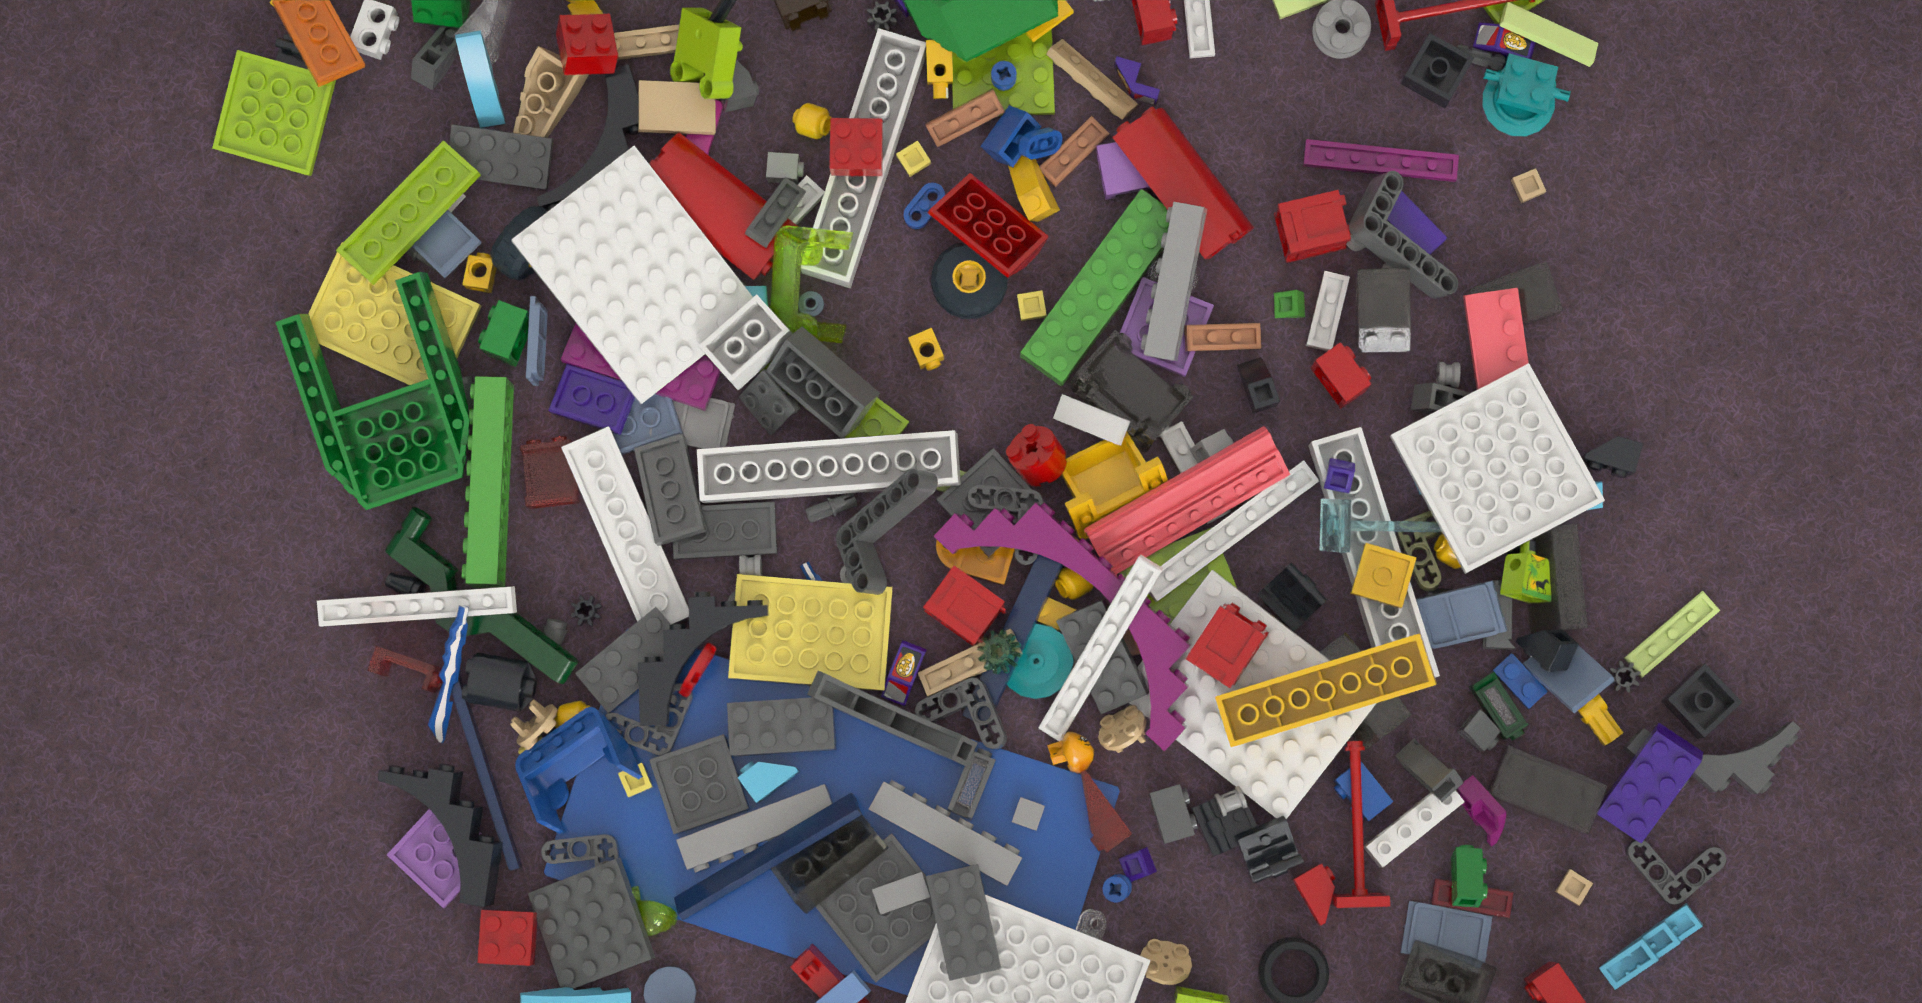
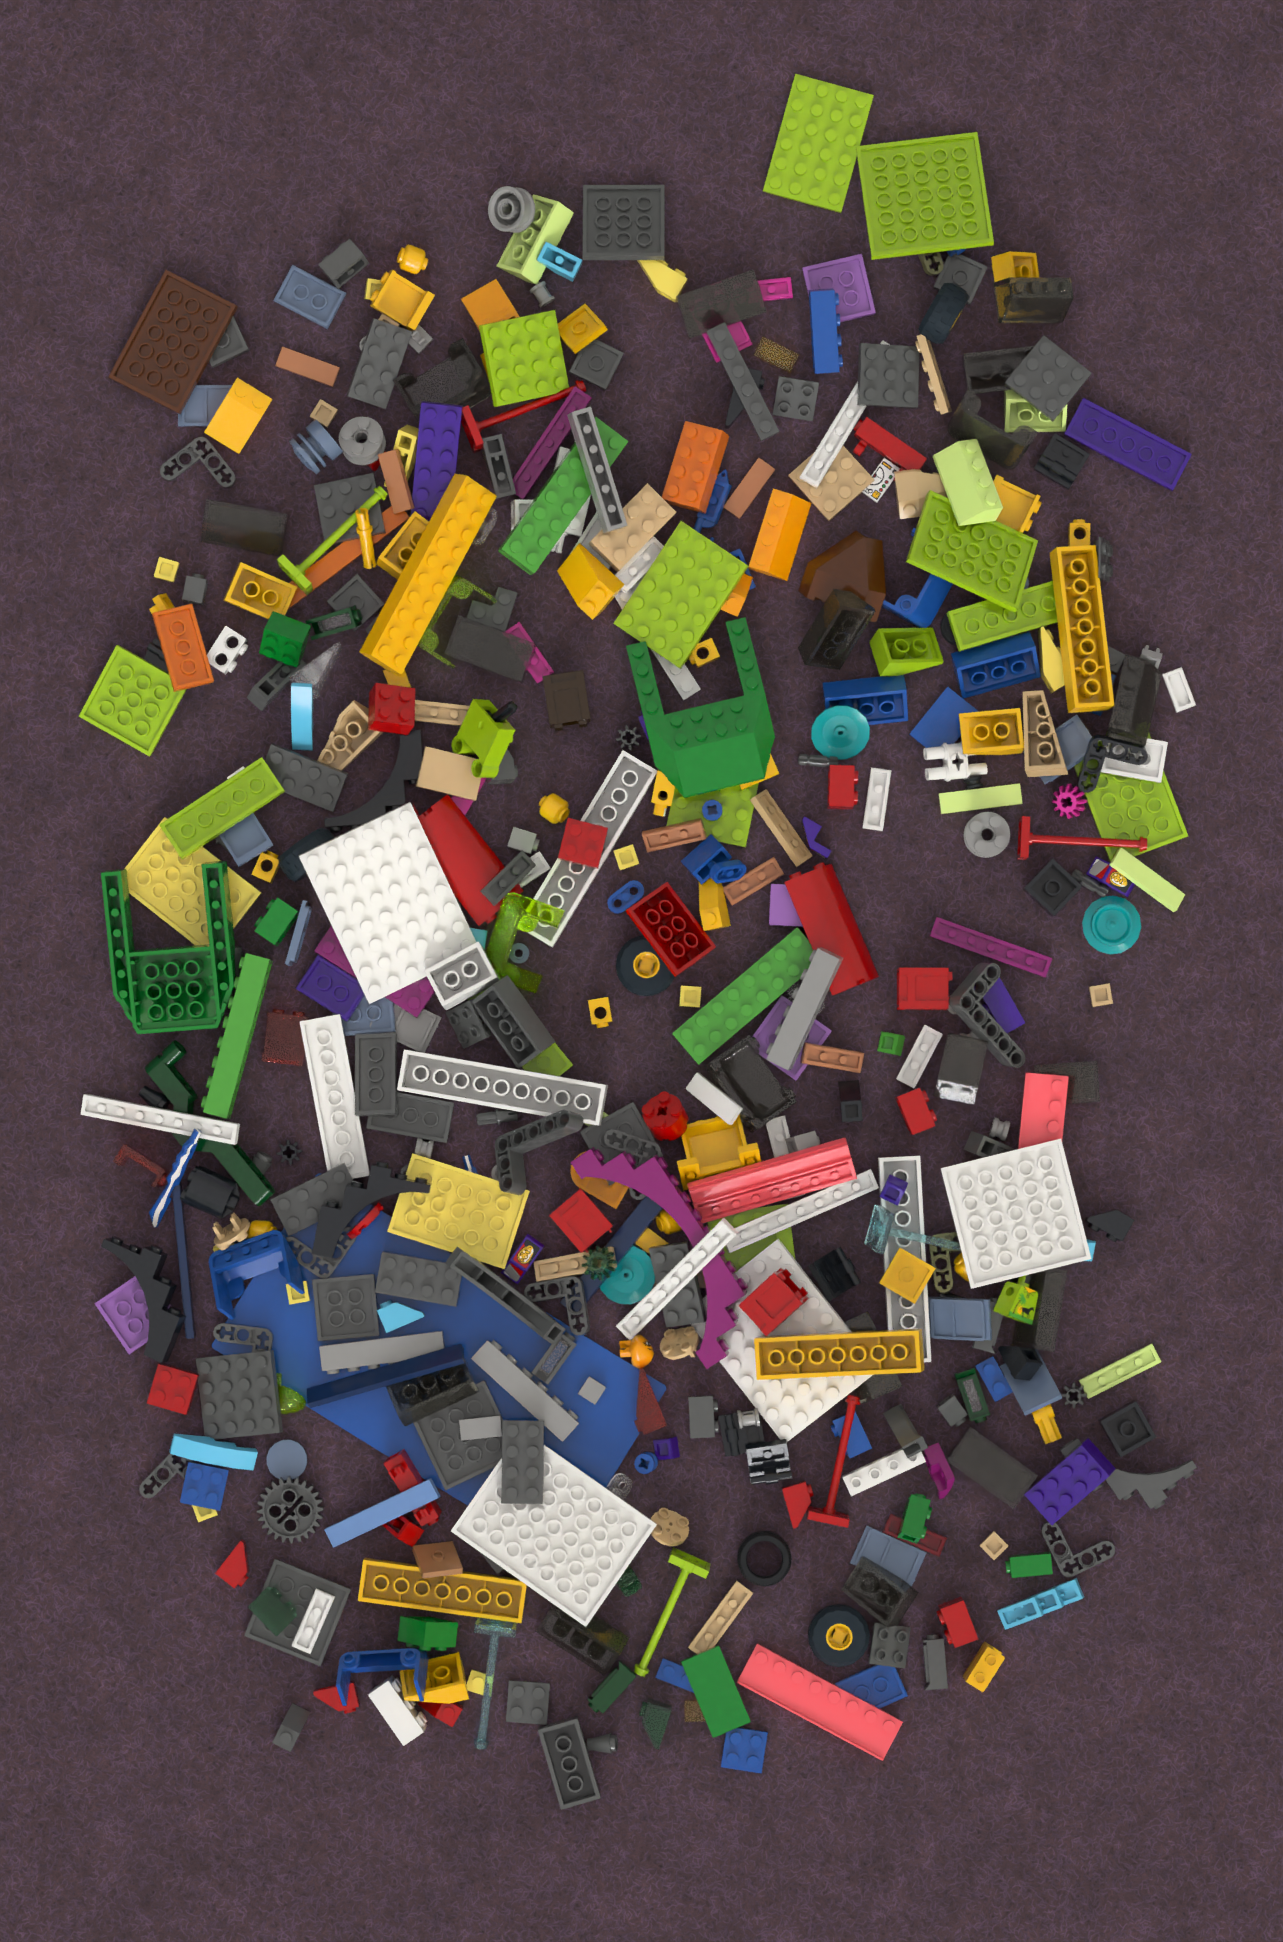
camera: 10 degrees right, 5 degrees up
(1527, 84) = (1119, 916): teal plate -> none
(1625, 900) = (1029, 1565): none -> green brick

